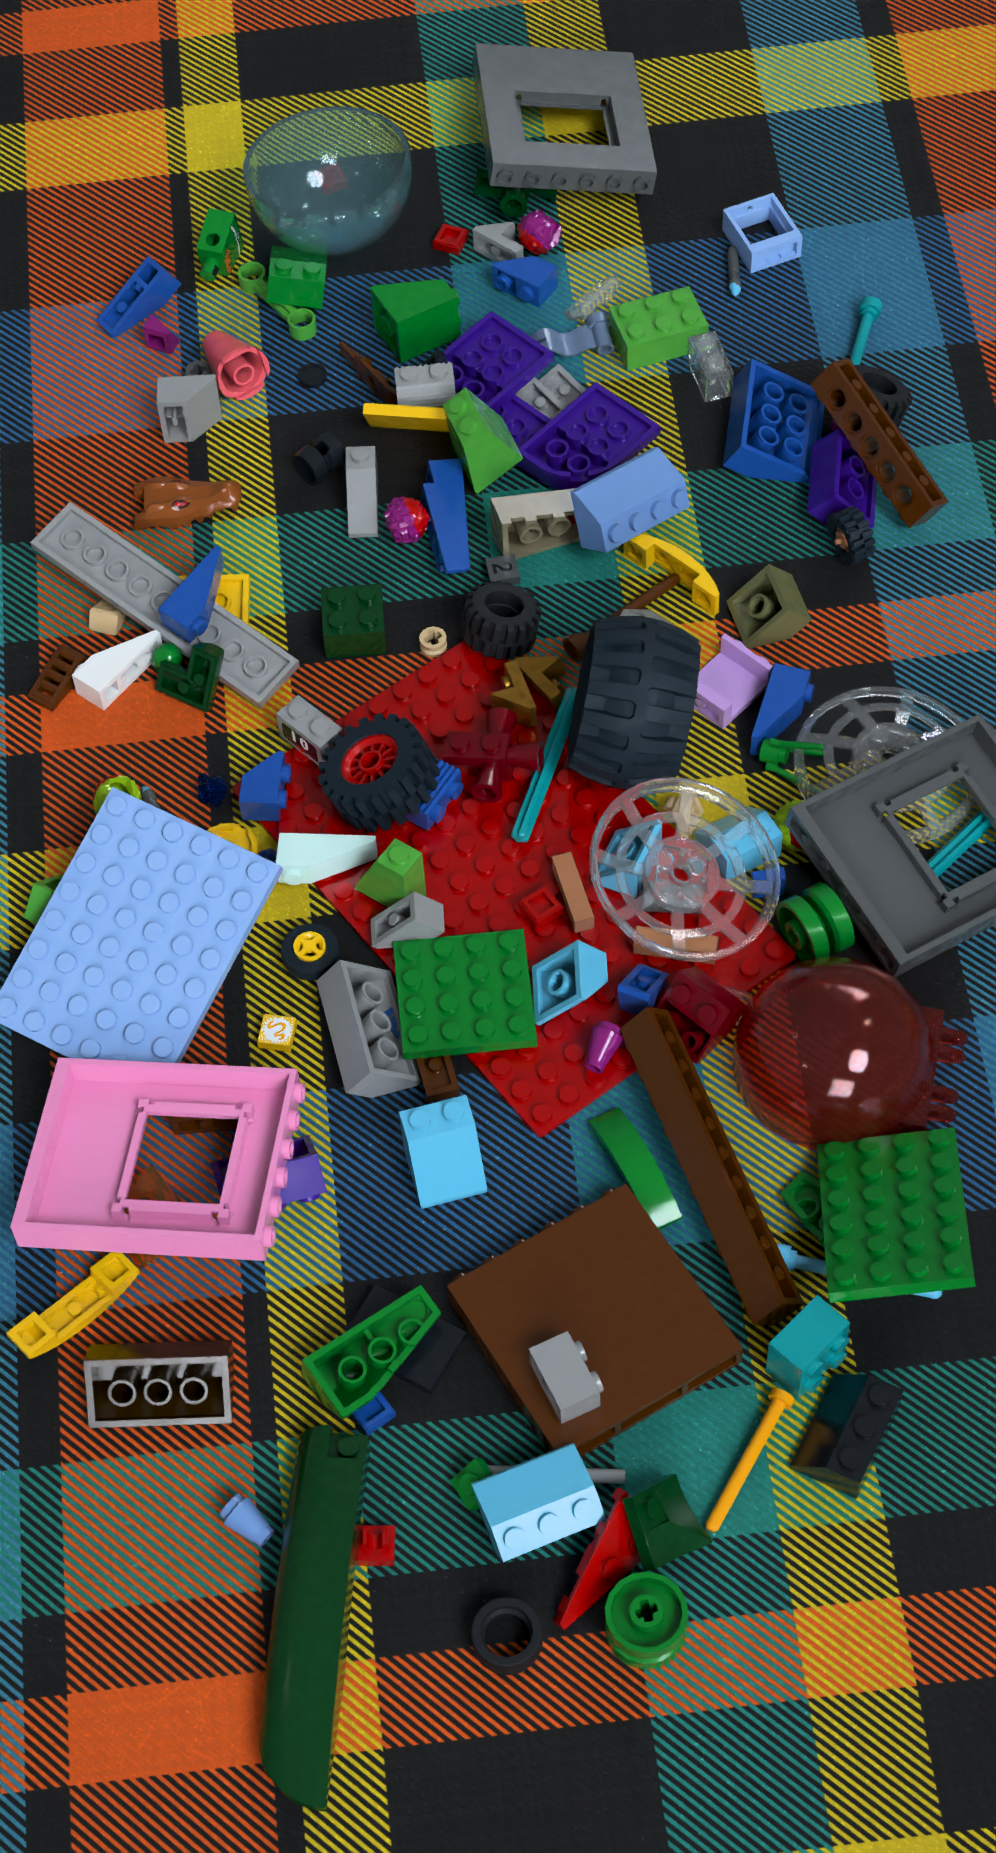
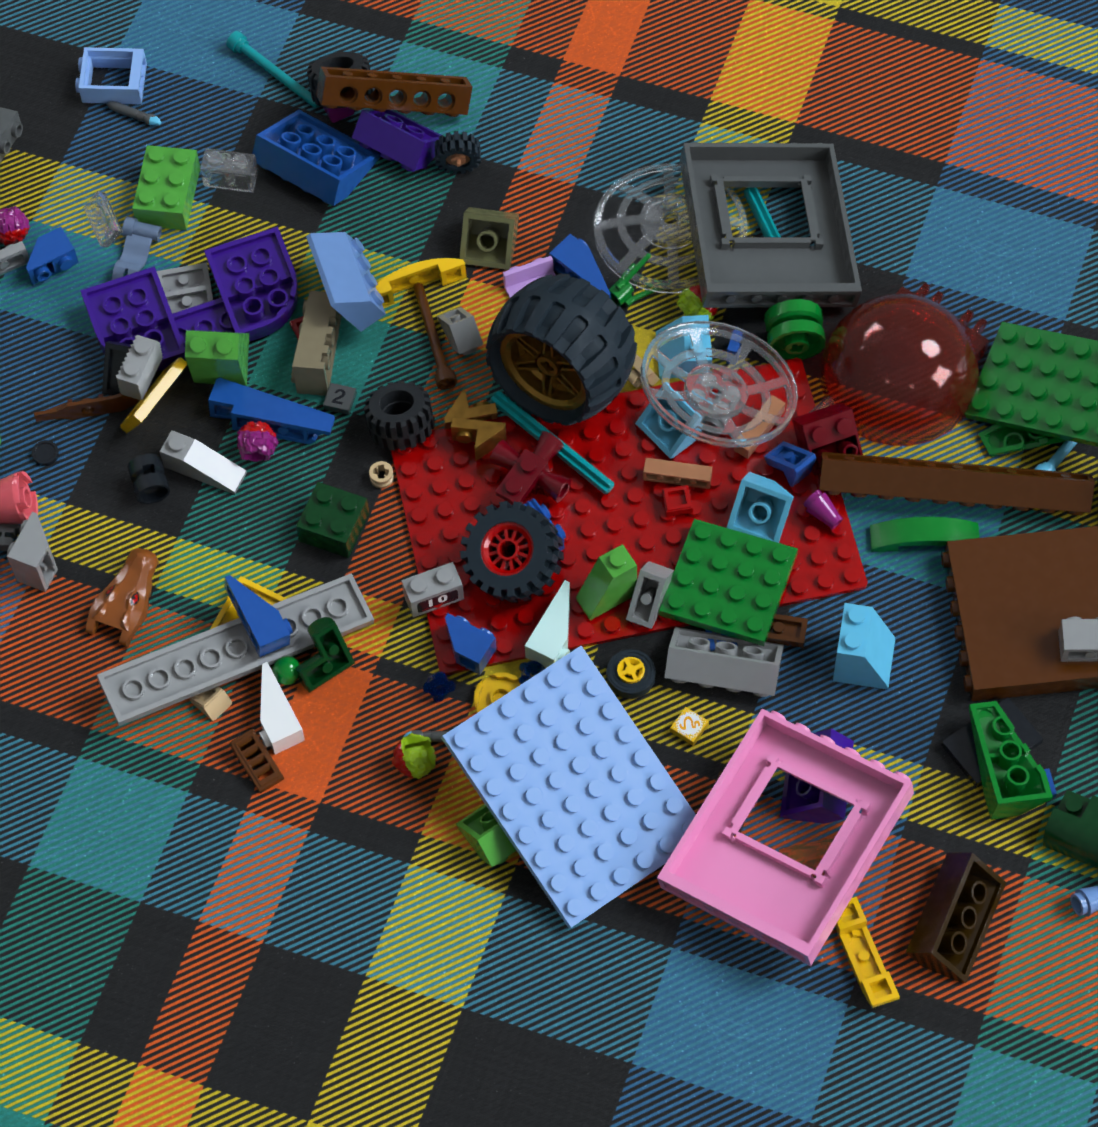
camera: 65 degrees left, 5 degrees up
(415, 316) = (45, 349): green slope -> none

